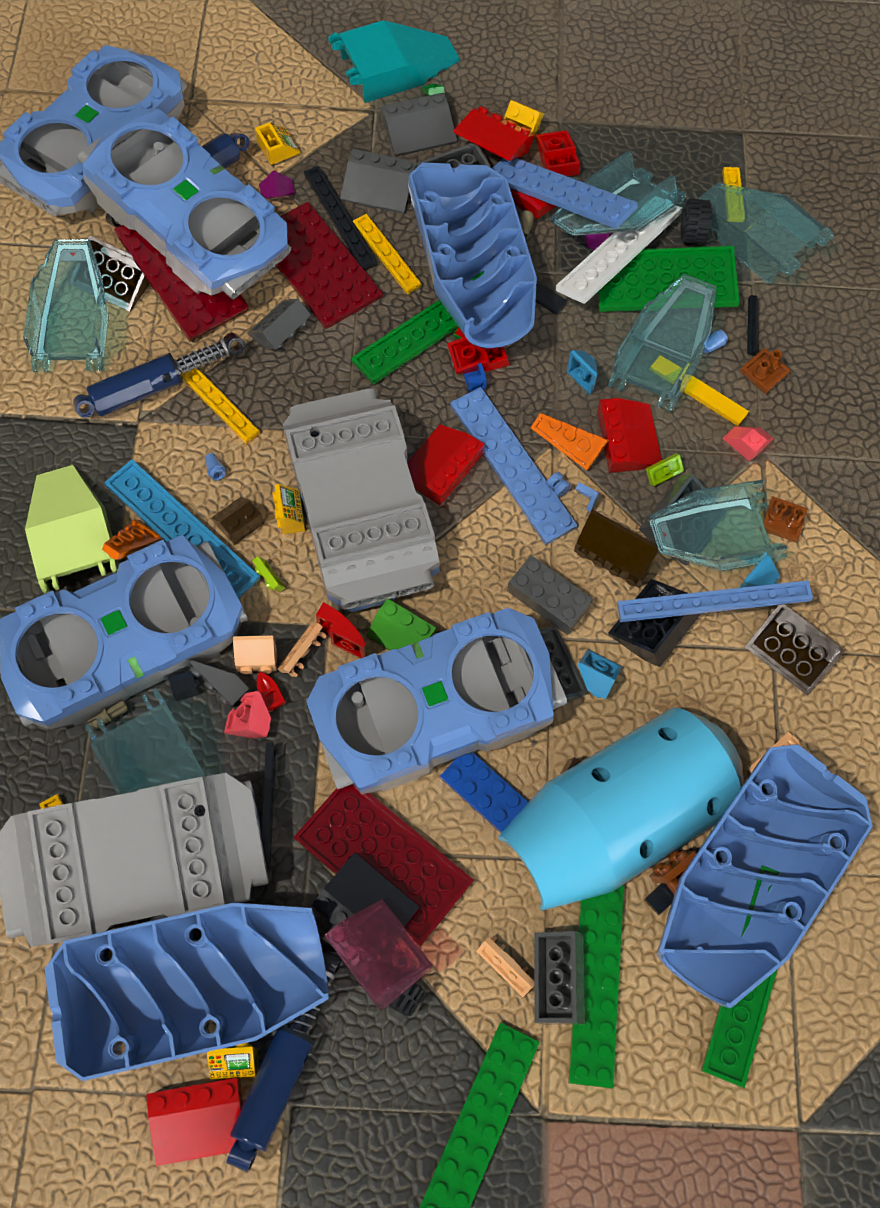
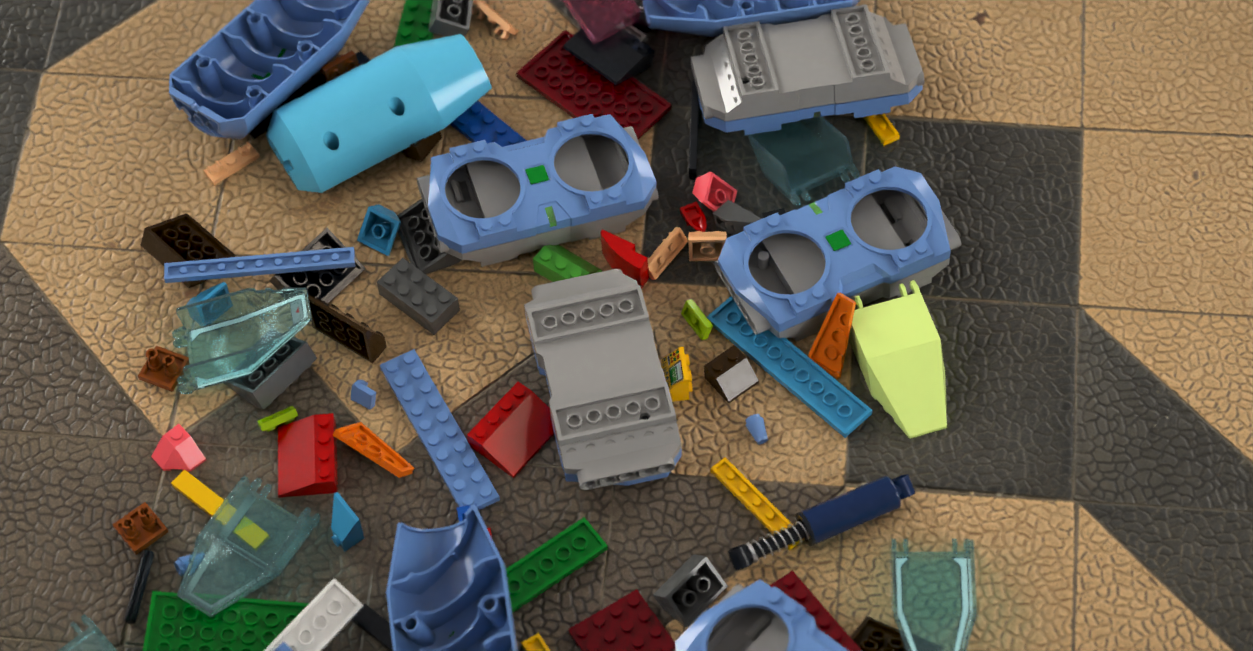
camera: 170 degrees left, 10 degrees down
(559, 485) = (392, 403): medium blue wheel -> none

